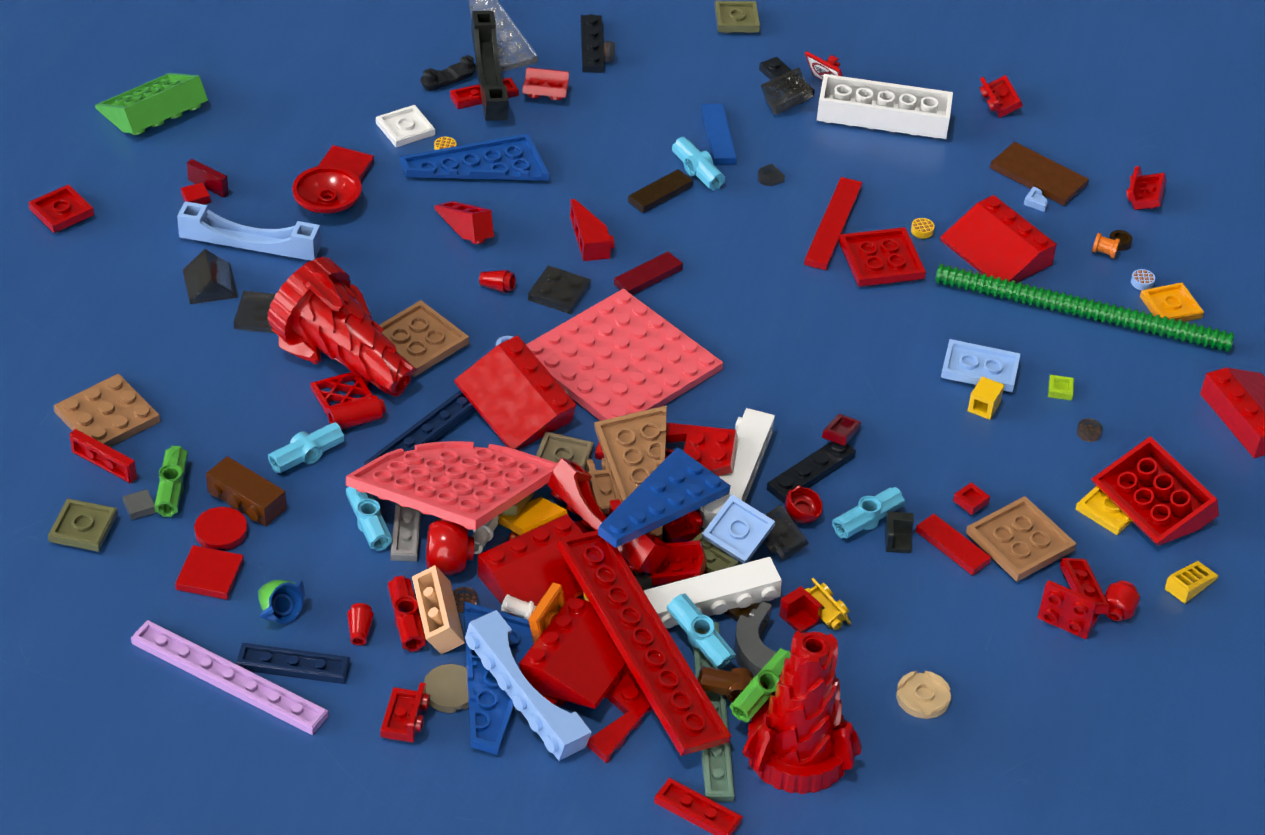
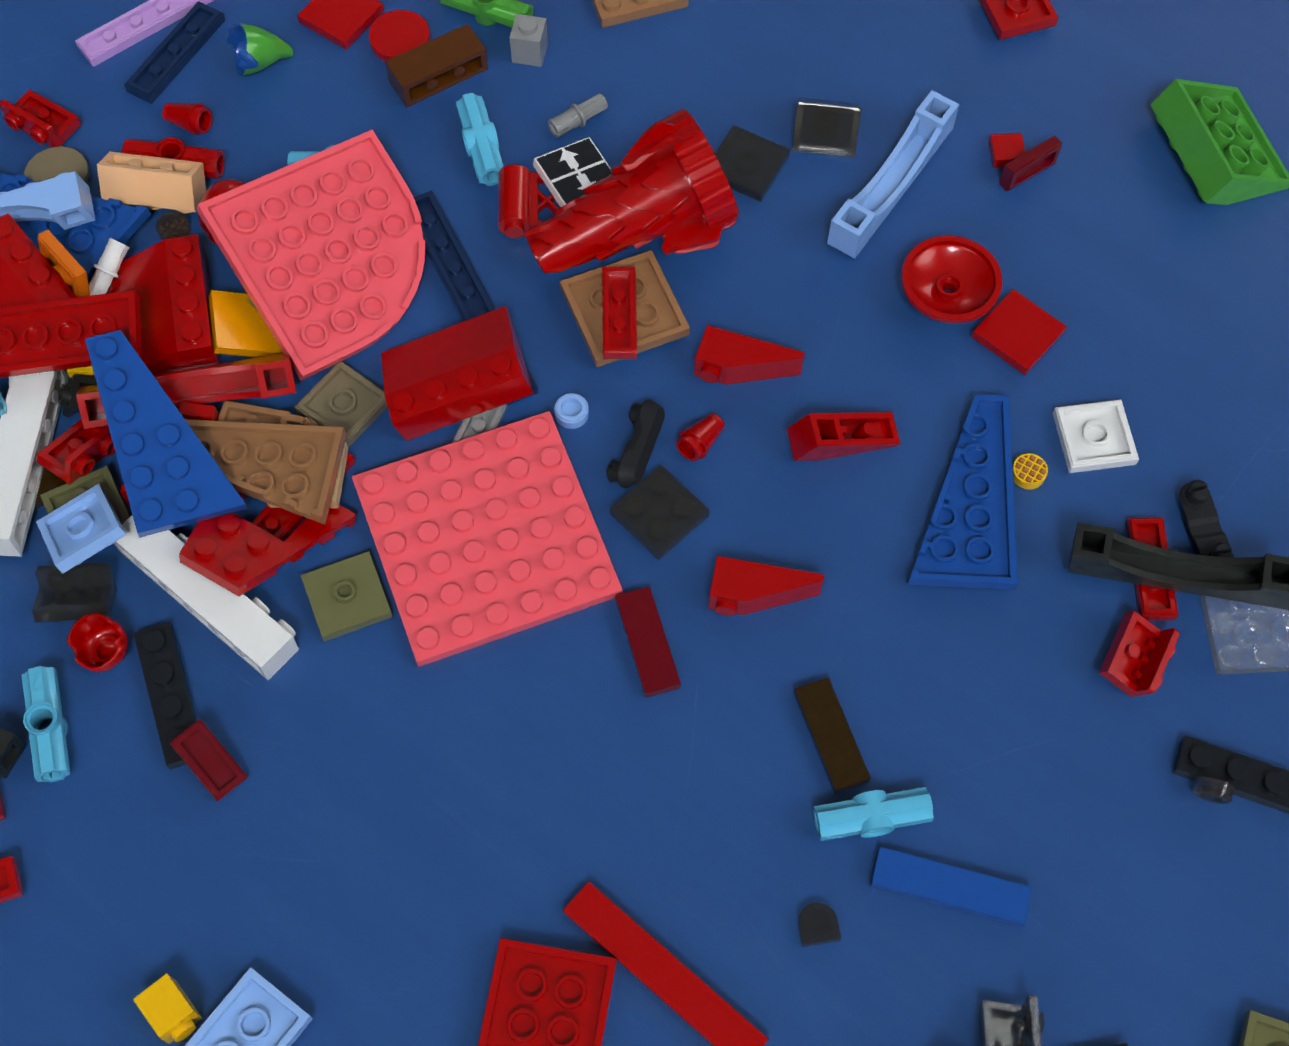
camera: 115 degrees right, 20 degrees up
(201, 444) = (529, 40): none -> light grey brick
(258, 405) = (577, 115): none -> light grey axle
(318, 385) = (571, 170): none -> black tile
(427, 331) = (619, 313): none -> red tile
(432, 275) = (739, 358): none -> red slope
(529, 303) = (647, 424): none -> black piece
(699, 408) = (346, 596): none -> olive plate

